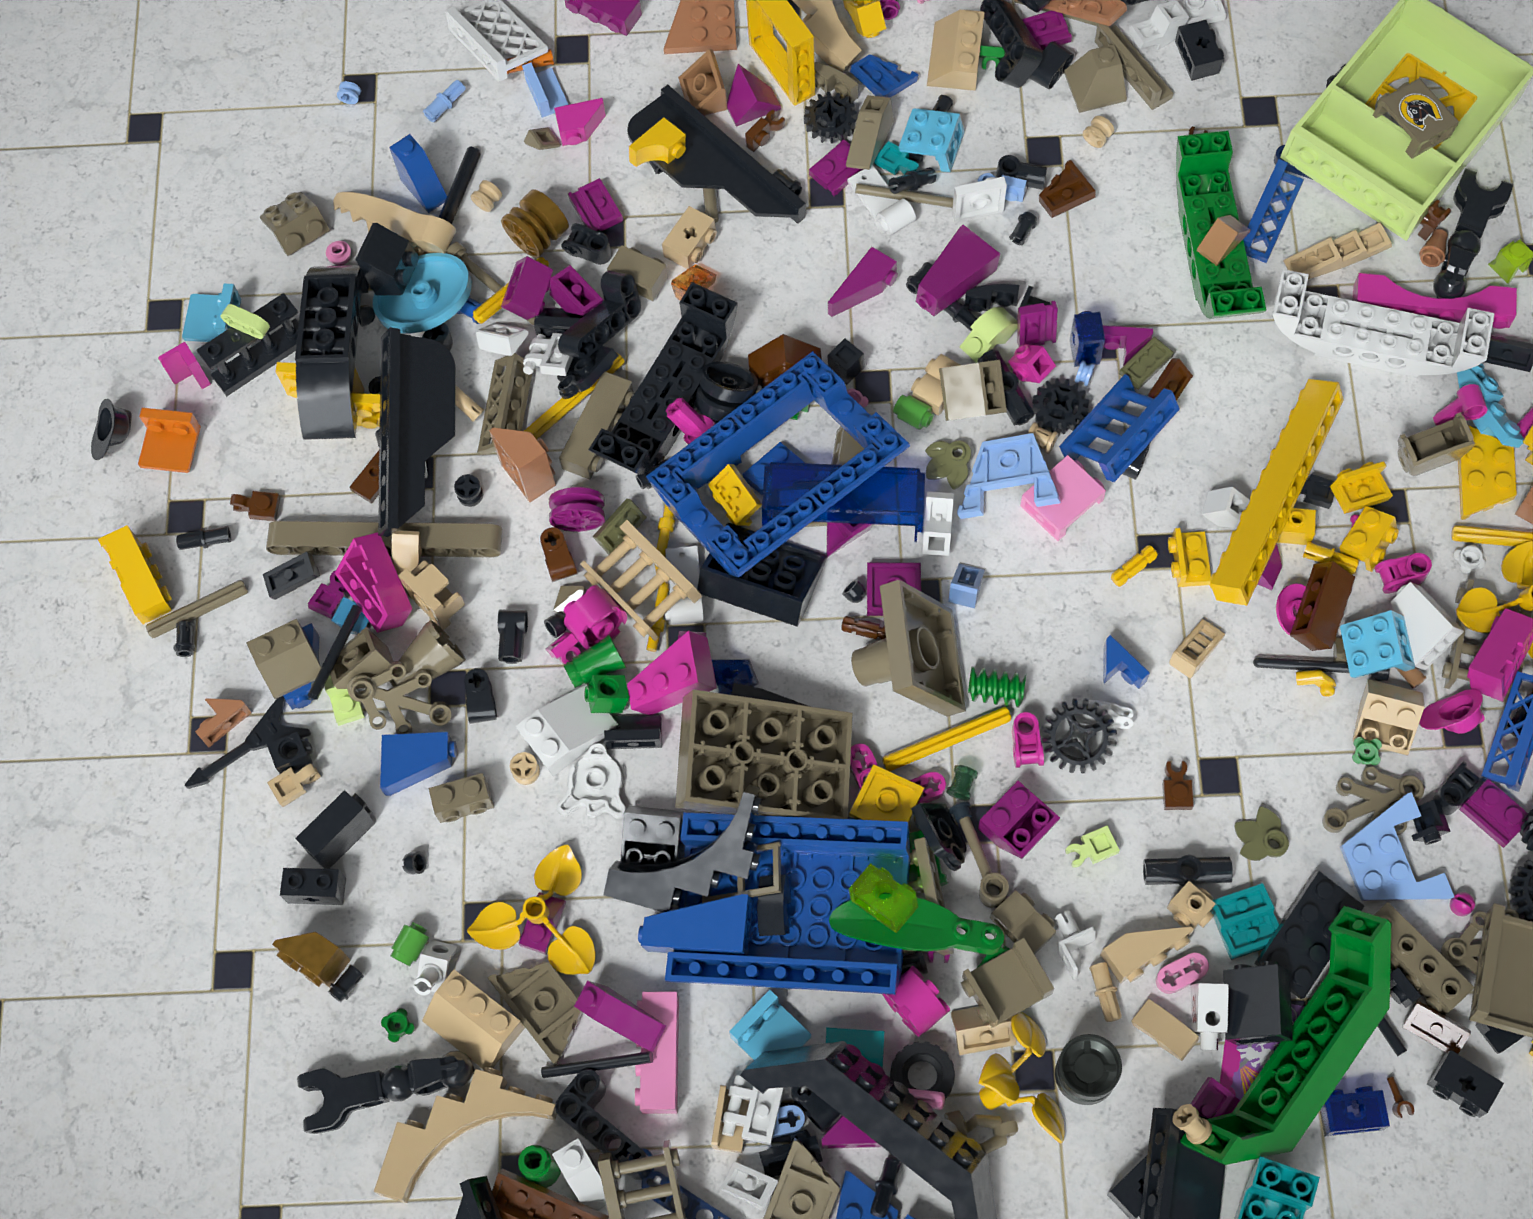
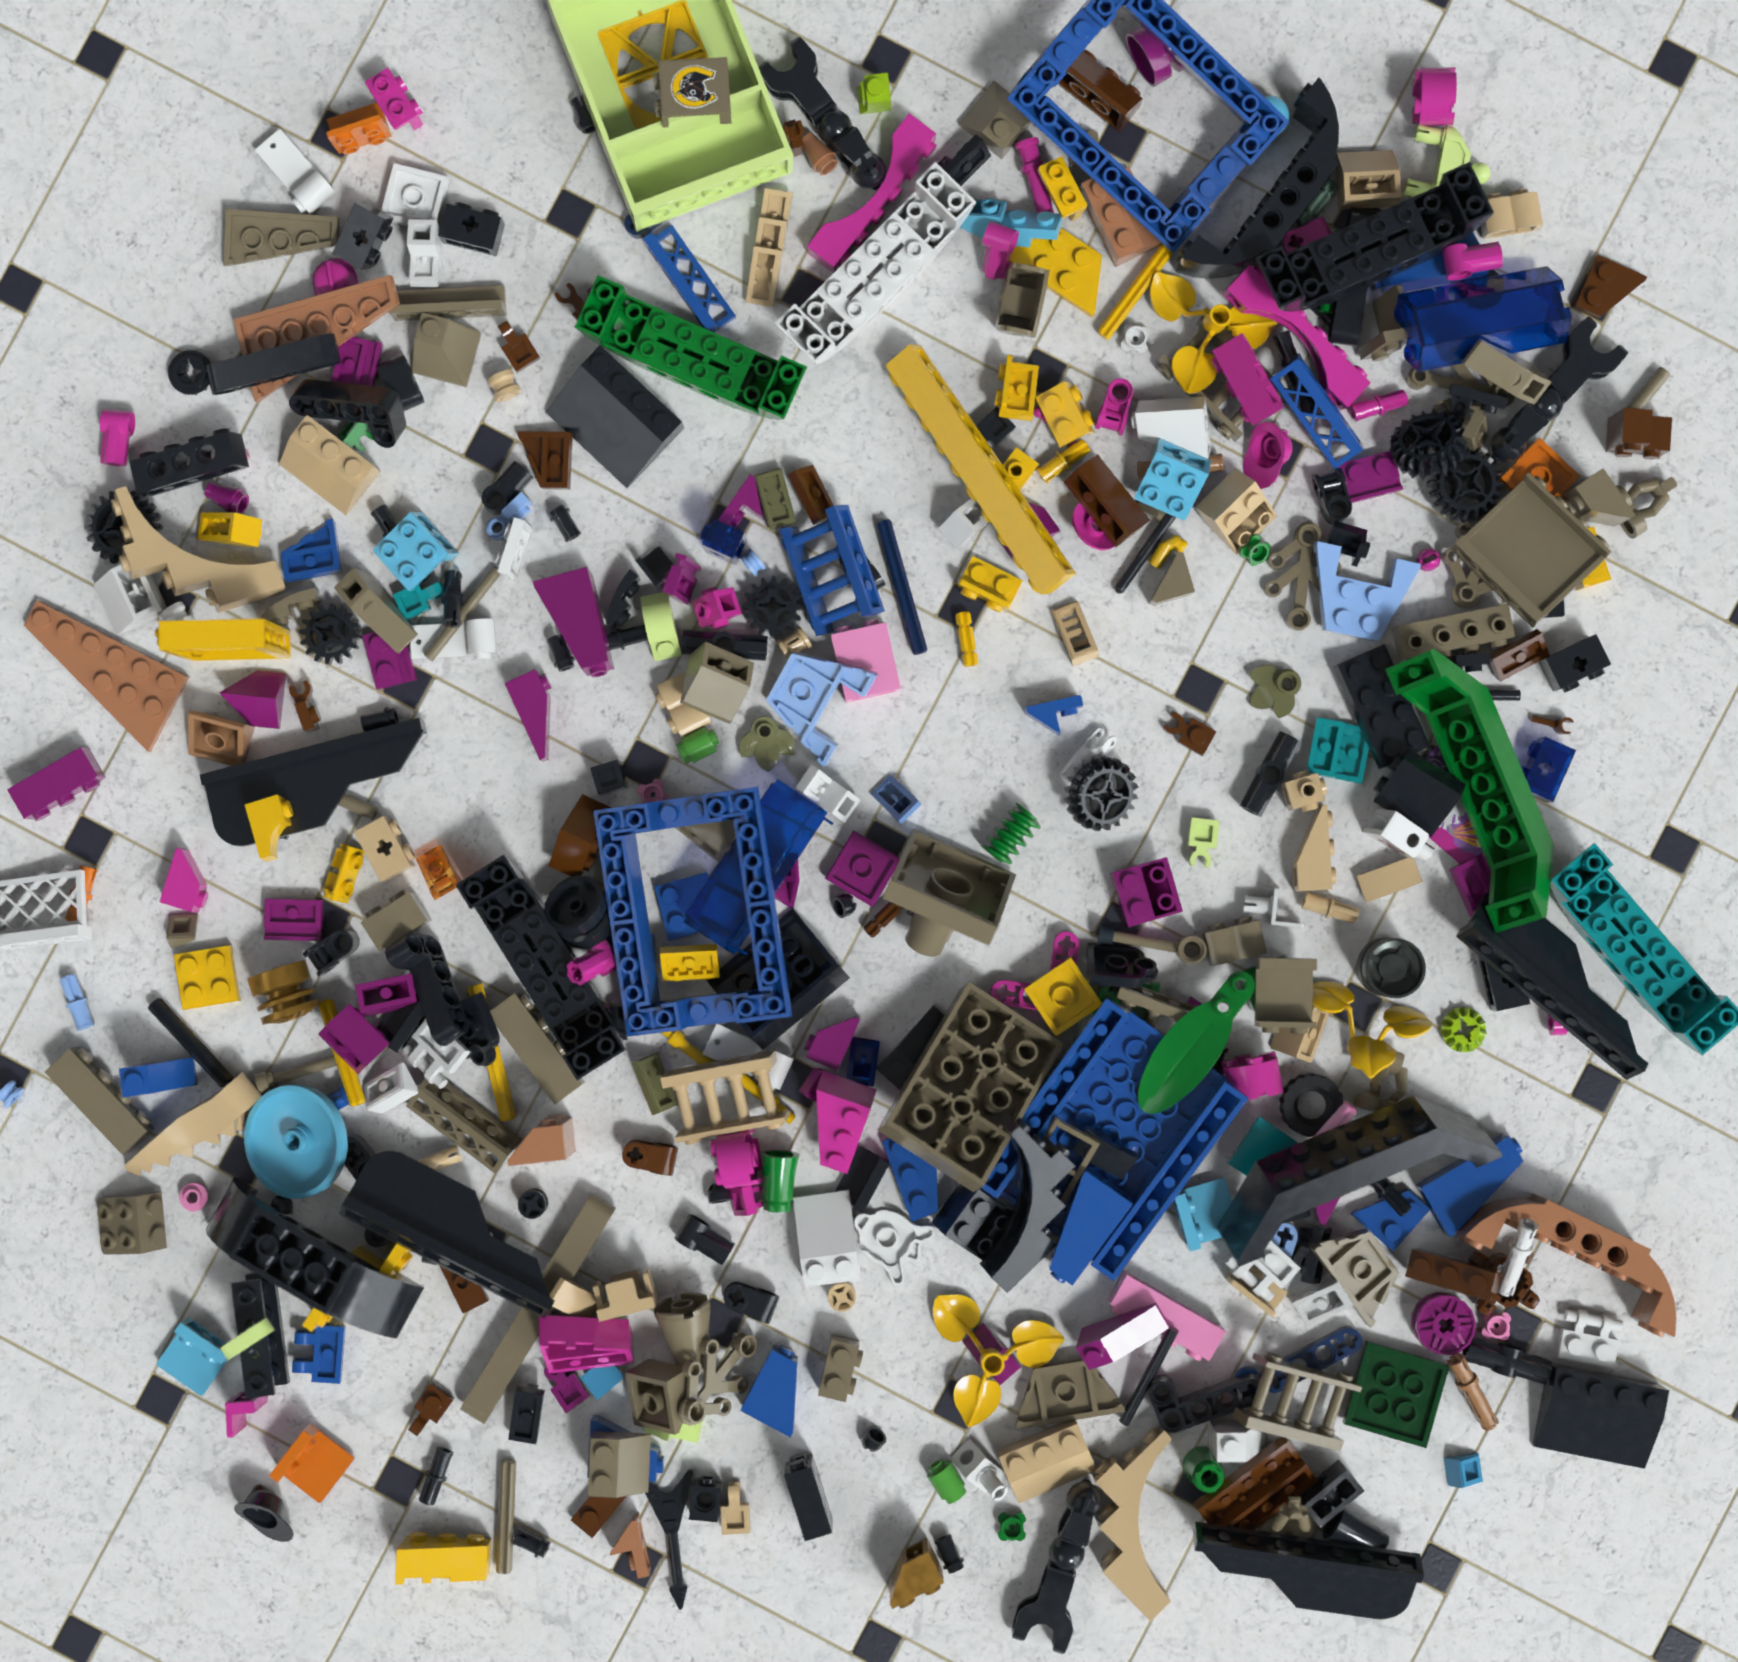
camera: 65 degrees left, 20 degrees up
(239, 677) = (595, 1513): none -> reddish brown plate
(264, 406) = (327, 1354): none -> blue plate
(313, 886) = (845, 1540): black brick -> none
(335, 652) = (635, 1414): black bar -> none
(374, 159) = (99, 1099): none -> dark tan brick
(386, 261) = (244, 1159): black slope -> none
(486, 196) = (217, 1020): tan wheel -> none
(515, 174) = (207, 977): none -> yellow plate
(544, 89) = (125, 894): light blue panel -> none
(567, 594) = (699, 1168): dark tan slope -> none
(576, 509) = (619, 1116): magenta wheel -> none
(607, 694) = (817, 1175): green brick -> none
(652, 224) = (341, 886): none -> yellow hinge
(656, 773) = (915, 1180): none -> blue wing
(736, 642) = (831, 1043): none -> magenta slope
(891, 911) = (1147, 1070): clear neon green brick -> none
(946, 739) = (1030, 906): yellow axle -> none
(962, 782) = (1079, 918): clear green bush -> none
(1027, 746) = (1077, 840): dark pink piece -> none
(1059, 1179) = (1451, 1024): none -> lime gear
(1129, 218) = (614, 417): none -> black slope
(1133, 127) = (519, 349): none -> reddish brown plate
(1141, 494) = (901, 587): none -> dark blue axle
(1185, 979) = (1343, 833): bright pink beam -> none
(1196, 1128) = (1490, 916): tan bush -> none
(1222, 238) = (702, 351): medium nougat slope -> none
(1292, 699) = (1175, 582): none -> dark tan slope

